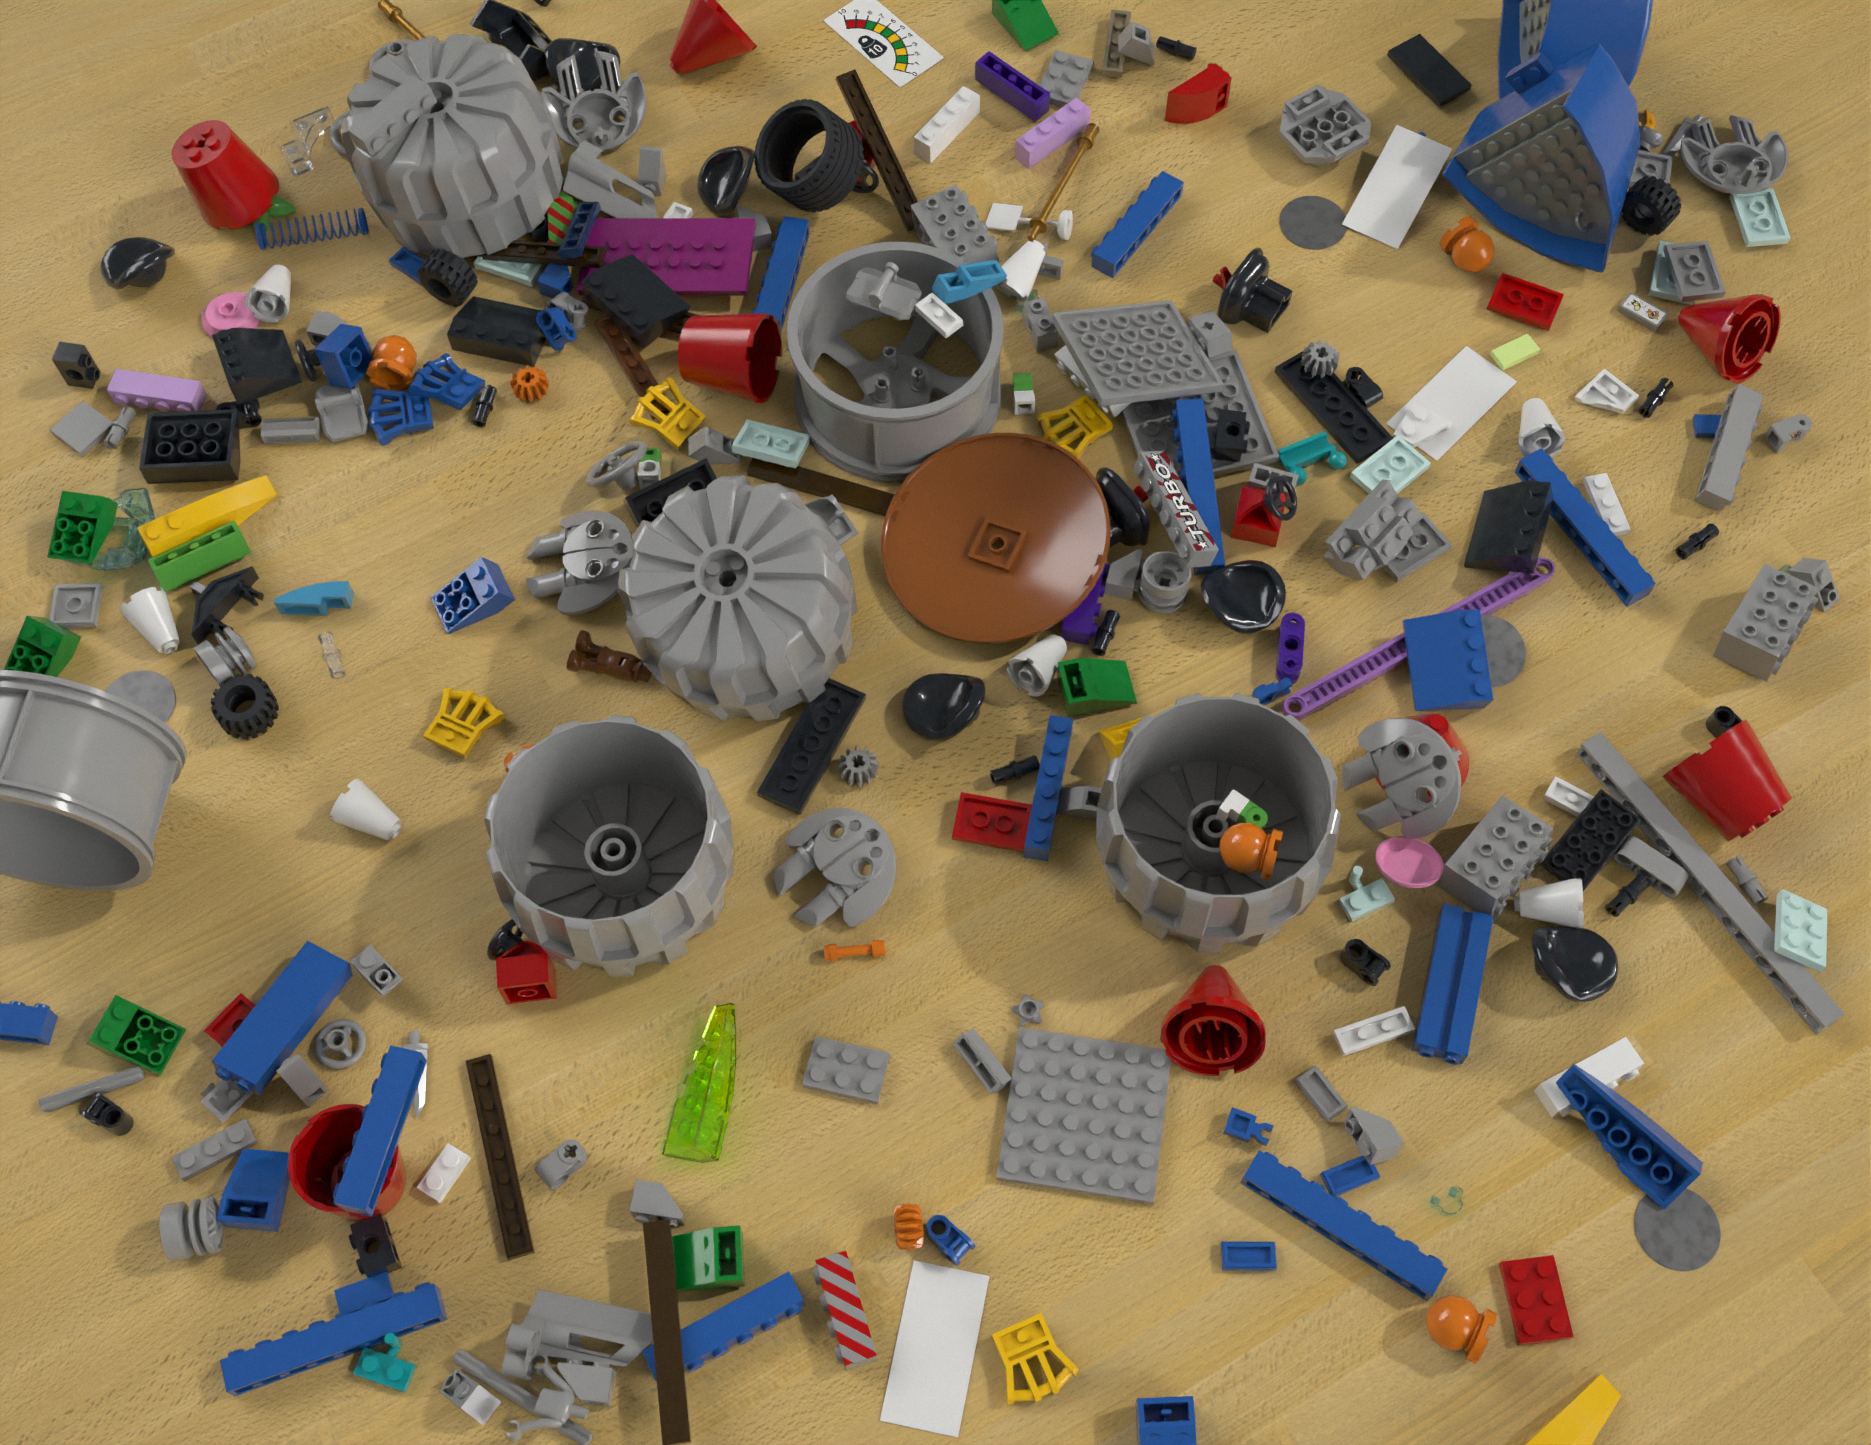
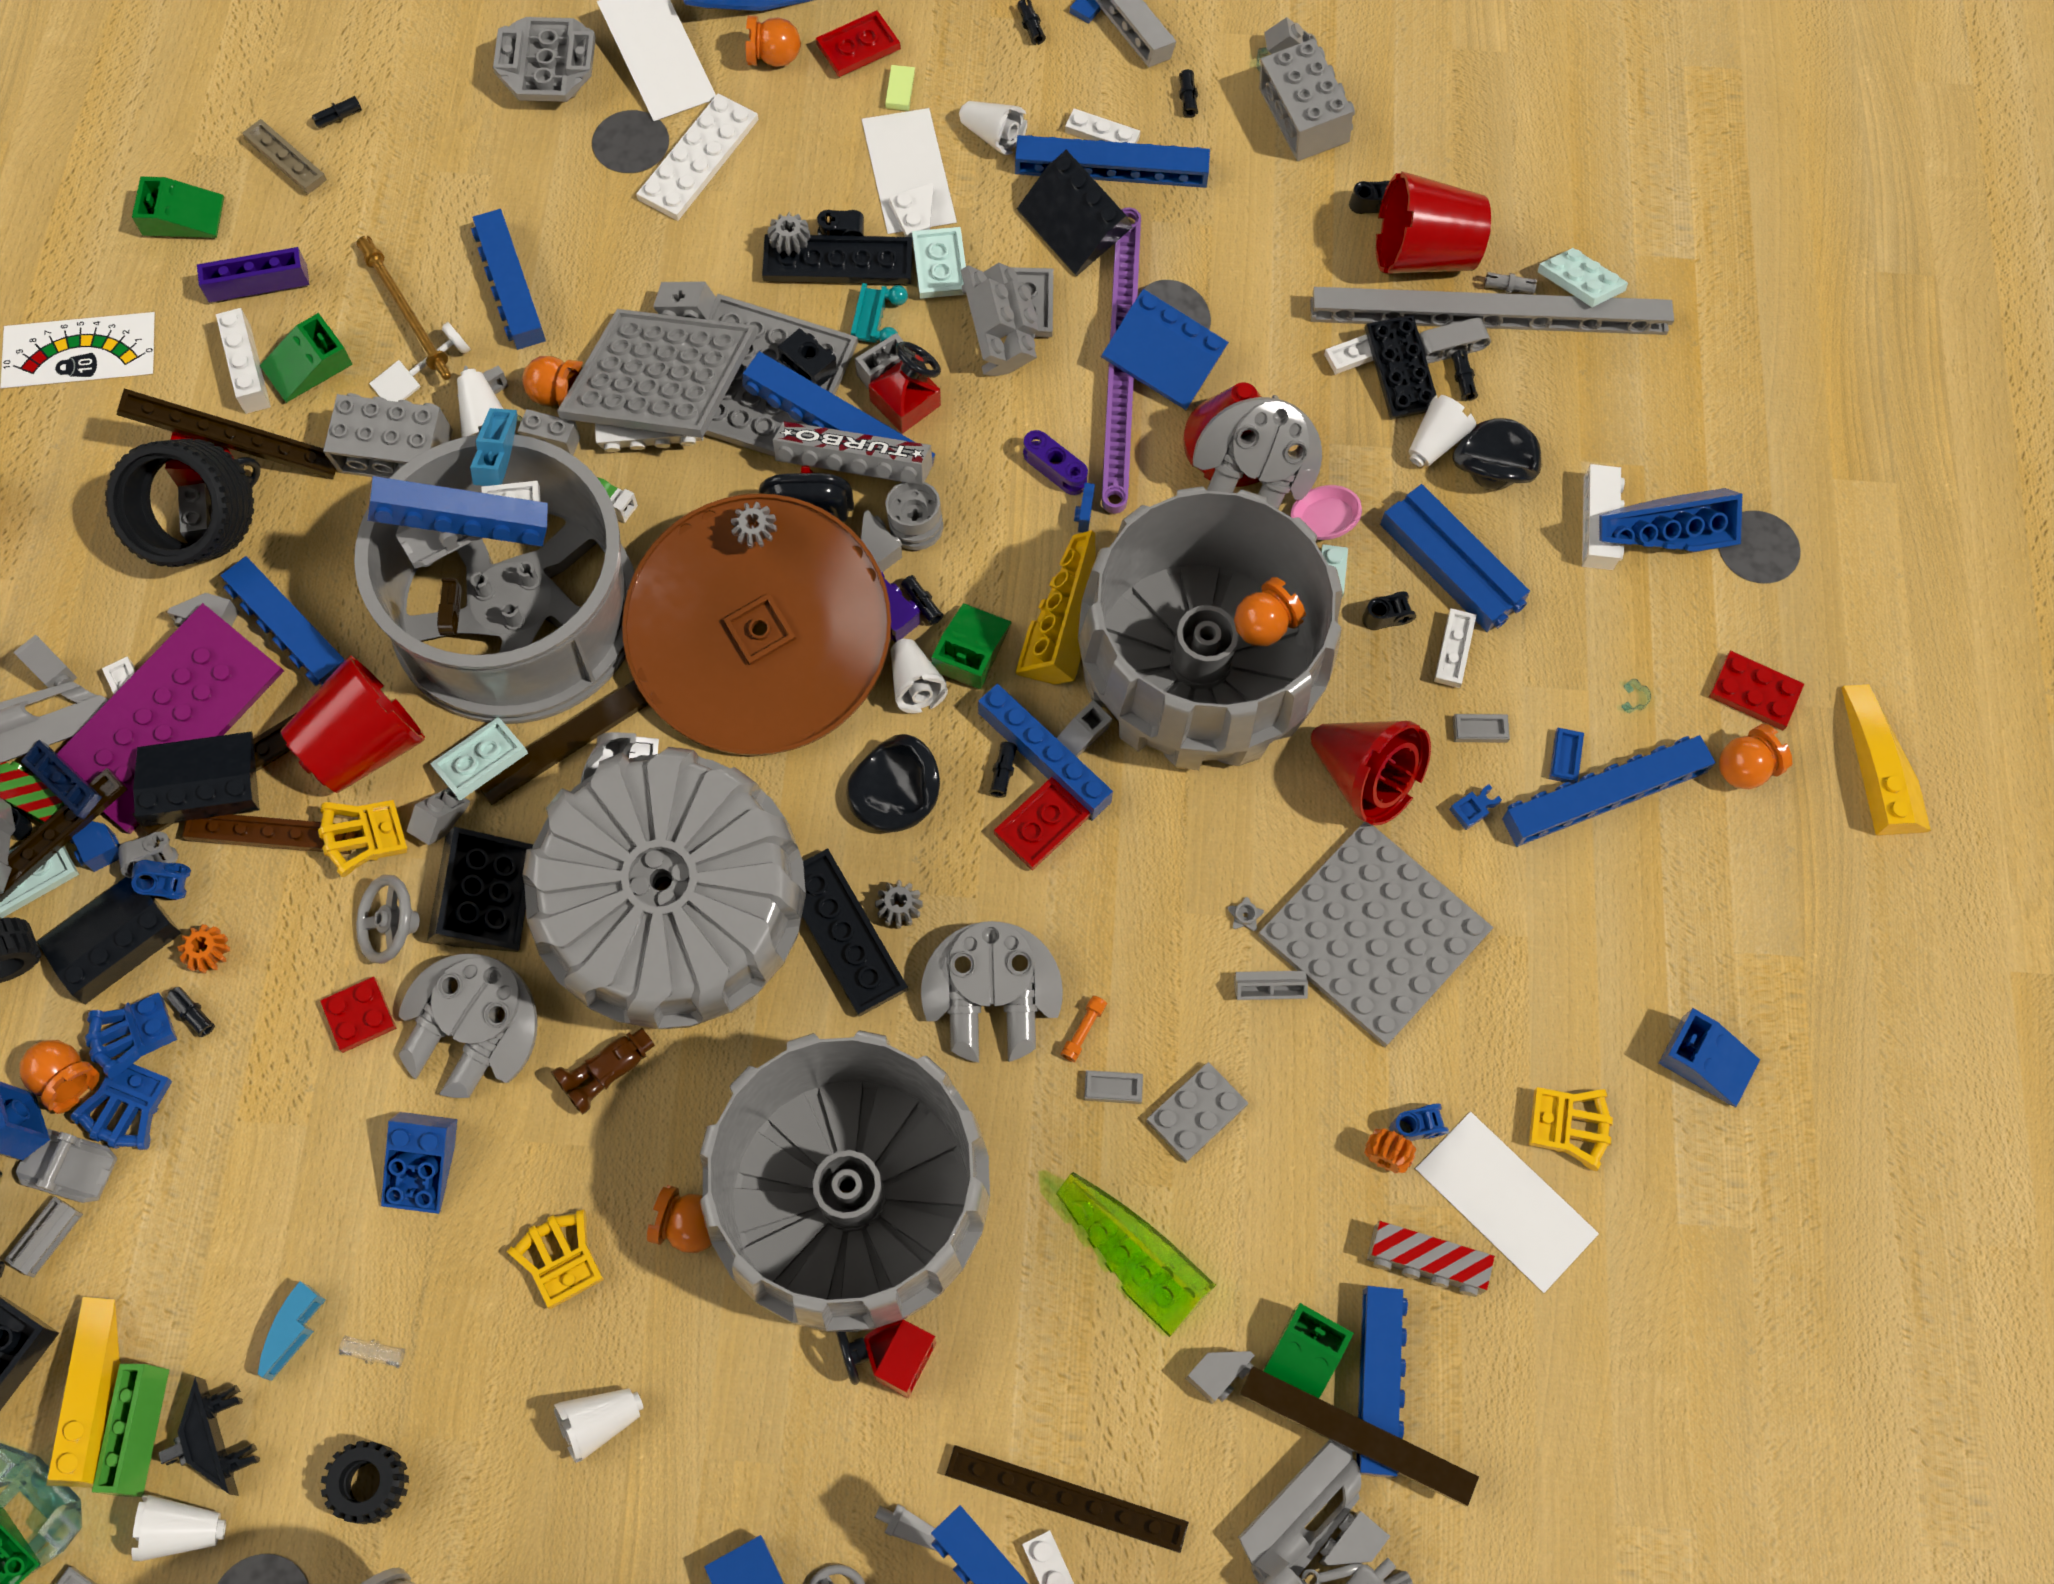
camera: 60 degrees left, 5 degrees up
(225, 656) = (289, 1470): light grey wheel -> none
(376, 970) = (790, 1510): light grey slope -> none
(547, 497) = (358, 1014): none -> red plate
(559, 1165) = (1119, 1447): light grey piece -> none
(650, 467) = (420, 894): white leg -> none
(725, 178) = (125, 598): black piece -> none
(825, 999) = (1113, 1087): none -> light grey tile
(832, 334) = (449, 607): none -> dark brown piece
(895, 287) = (457, 511): none -> brick
(978, 155) = (305, 358): none -> green slope
(1052, 133) = (339, 278): lavender brick -> none
(1066, 77) = (283, 224): light grey plate -> none
(1066, 482) = (754, 515): none -> light grey gear
(1078, 293) = (550, 379): none -> orange tile
(1085, 417) = (683, 464): yellow plate -> none
(1137, 43) = (306, 138): light grey slope -> none
(1199, 96) = (417, 128): red piece -> none
(1242, 810) = (1220, 599): leg -> none
(1245, 595) = (978, 458): black piece -> none
(1248, 1256) = (1586, 884): blue tile -> none
(1251, 294) = (670, 240): black piece -> none
(1339, 268) = (697, 157): none -> white plate
(1373, 1135) = (1548, 712): light grey slope -> none
(1496, 857) = (1373, 443): light grey brick -> none
(1607, 393) = (999, 51): white wing -> none

